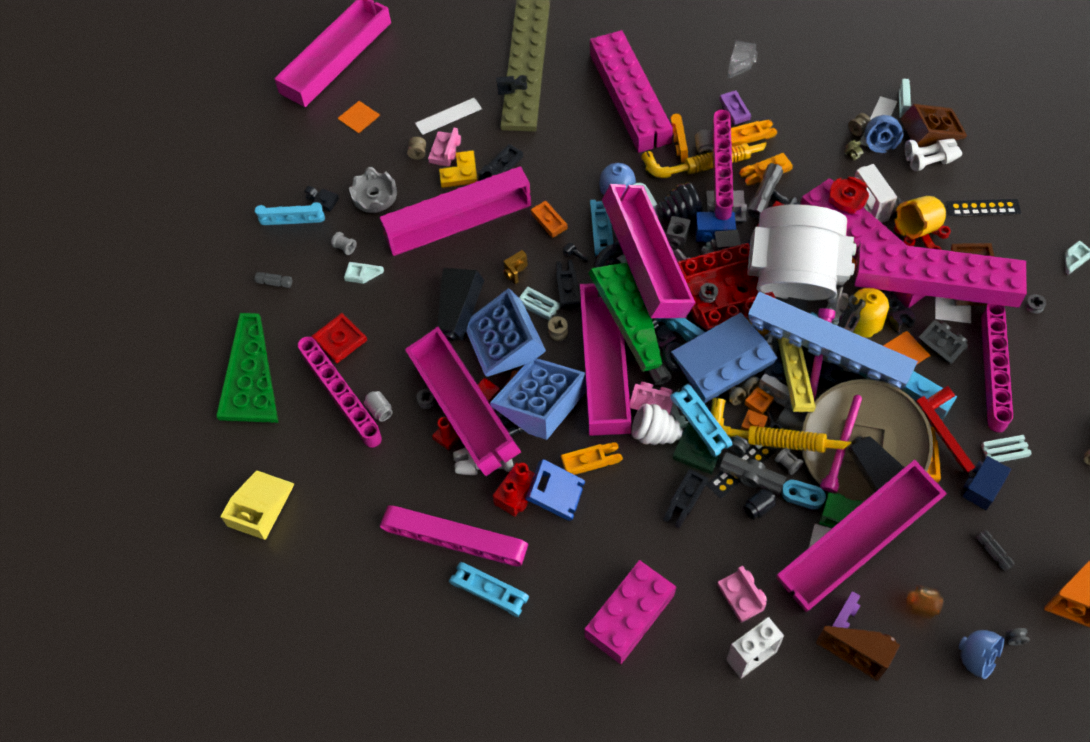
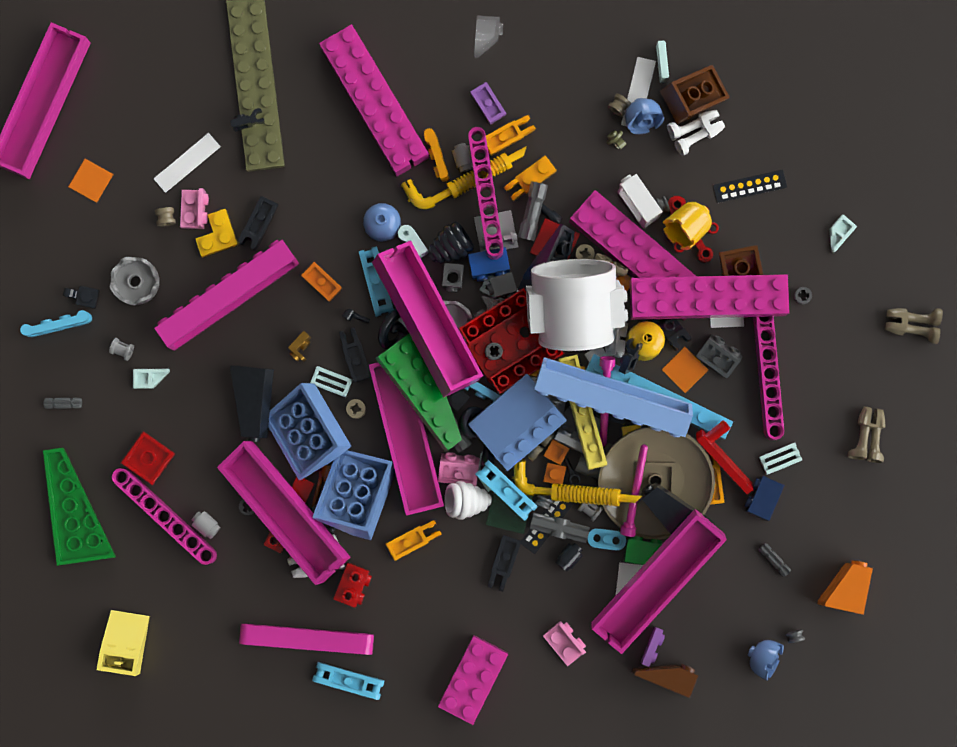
camera: 15 degrees left, 25 degrees up
(560, 492) = (392, 581): container -> none
(758, 642) = (583, 690): white window -> none
(848, 203) = (625, 209): red plate -> none
(925, 601) = (717, 621): clear orange head -> none

